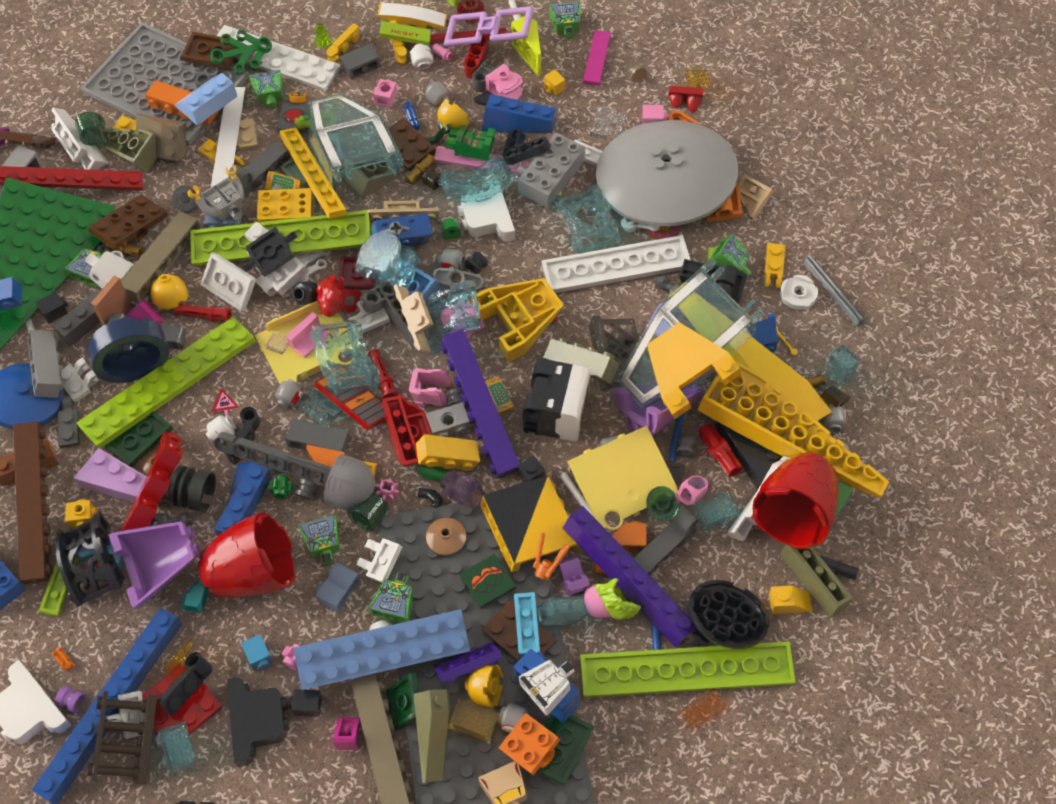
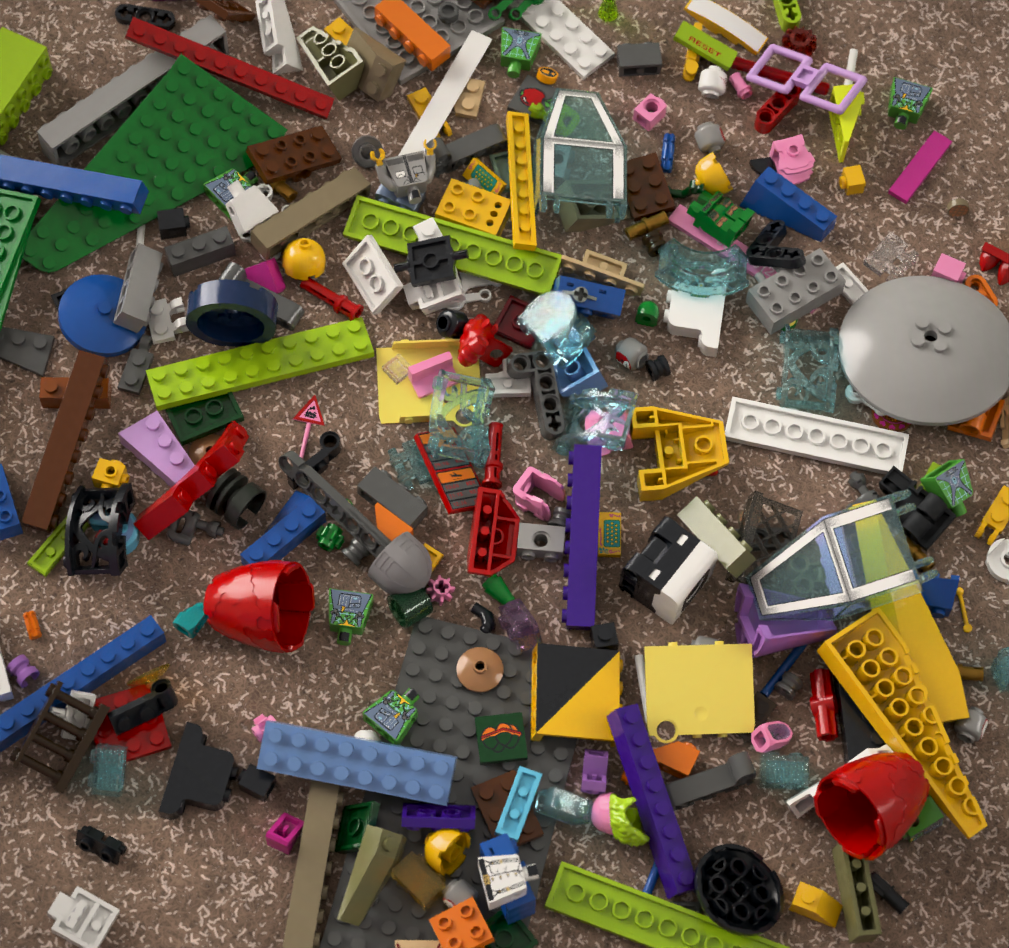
camera: 20 degrees right, 5 degrees up
(90, 127) = (297, 21): clear green hat -> none
(111, 300) = (237, 248): nougat tile -> none
(154, 557) = (166, 559): medium lavender cone -> none
(208, 98) = (441, 41): light blue slope -> none
(219, 425) = (294, 440): white head -> none
(257, 652) = (229, 707): dark azure brick -> none
(289, 393) = (383, 434): light grey head -> none
(337, 587) = (342, 673): sand blue brick -> none
(342, 43) = (628, 27): yellow hinge -> none
(384, 559) = (401, 667): white plate -> none
(417, 316) = (558, 406): tan bracket -> none
(446, 276) = (615, 370): light grey connector -> none
(447, 452) = (523, 578): yellow brick -> none
(479, 76) = (773, 133): dark grey piece -> none
(545, 568) = (568, 751): orange plant -> none
(662, 503) = (726, 739): clear green hat -> none
(681, 358) = (819, 588): yellow wedge -> none
(835, 396) = (984, 701): dark brown slope -> none

